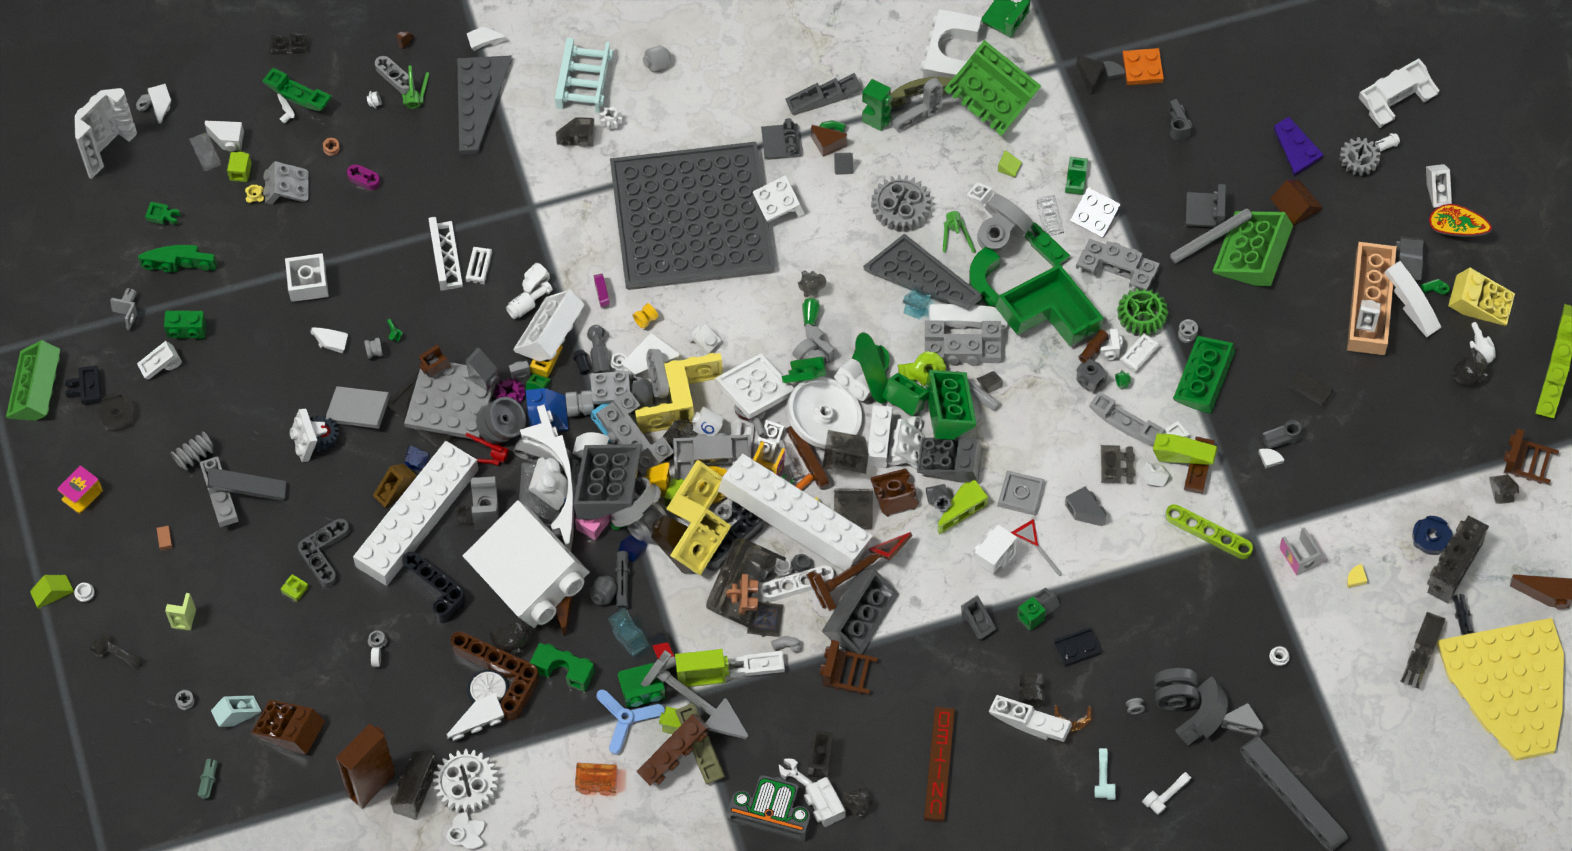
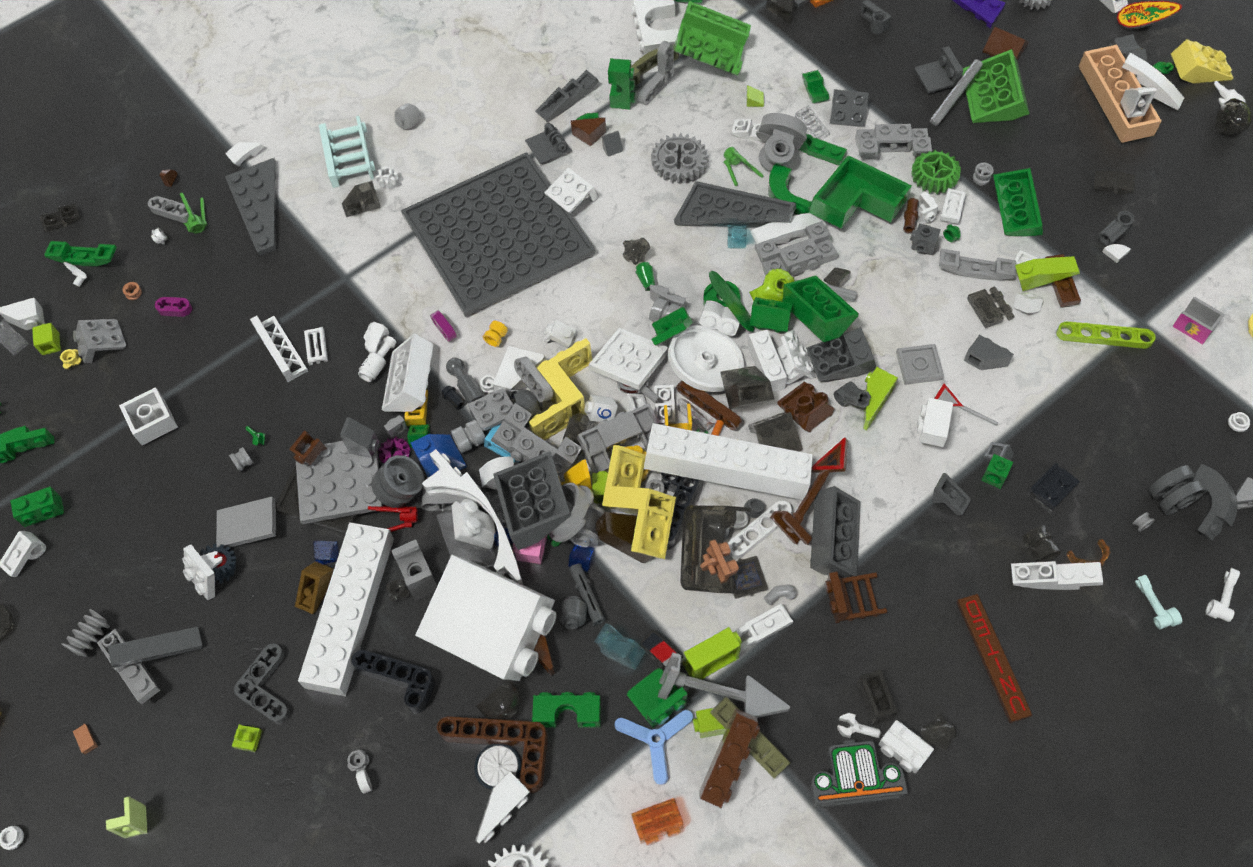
camera: 20 degrees left, 0 degrees up
(330, 339) = (194, 466): white slope -> none

